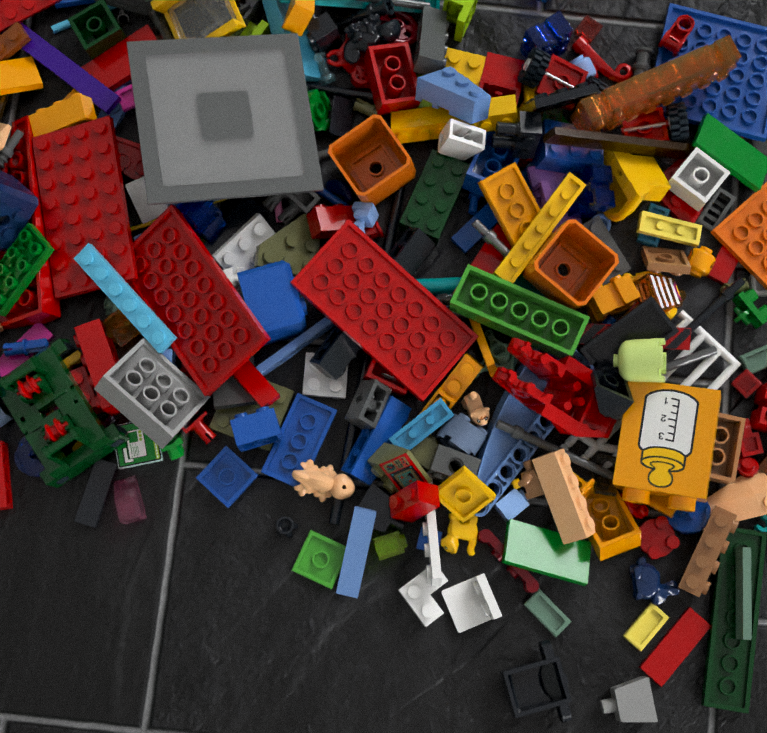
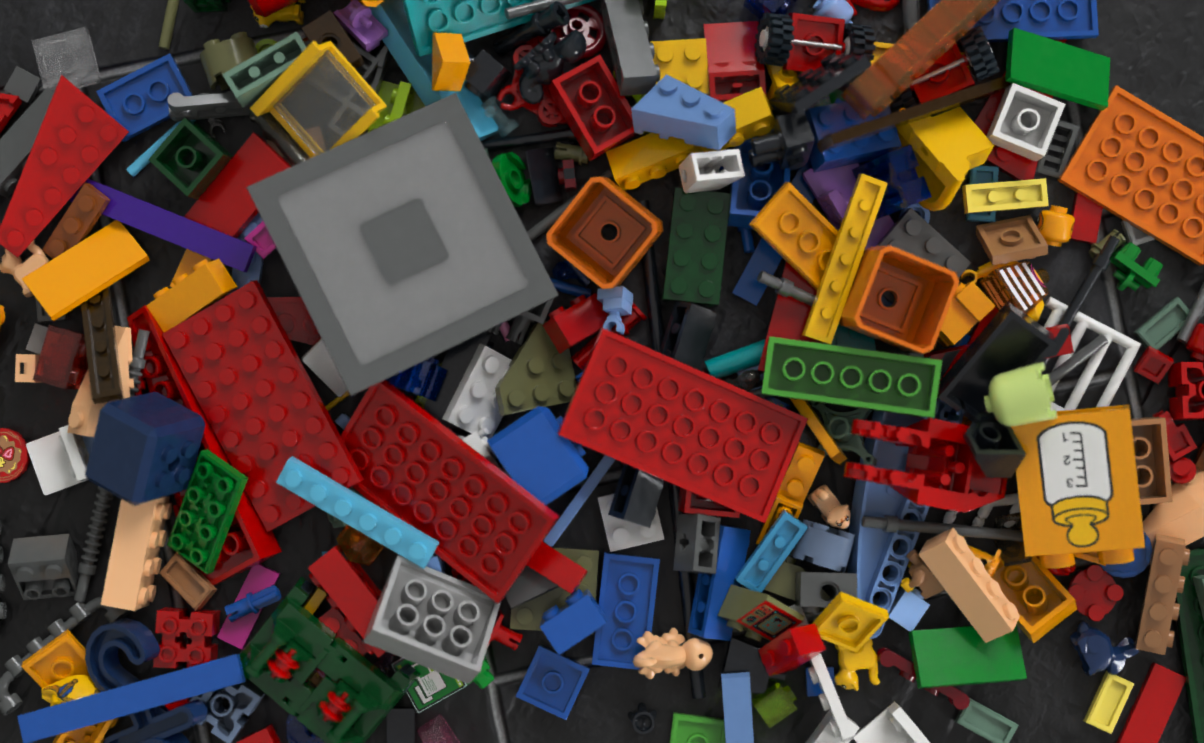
camera: 15 degrees left, 10 degrees up
(359, 118) = (567, 175): none -> dark red plate

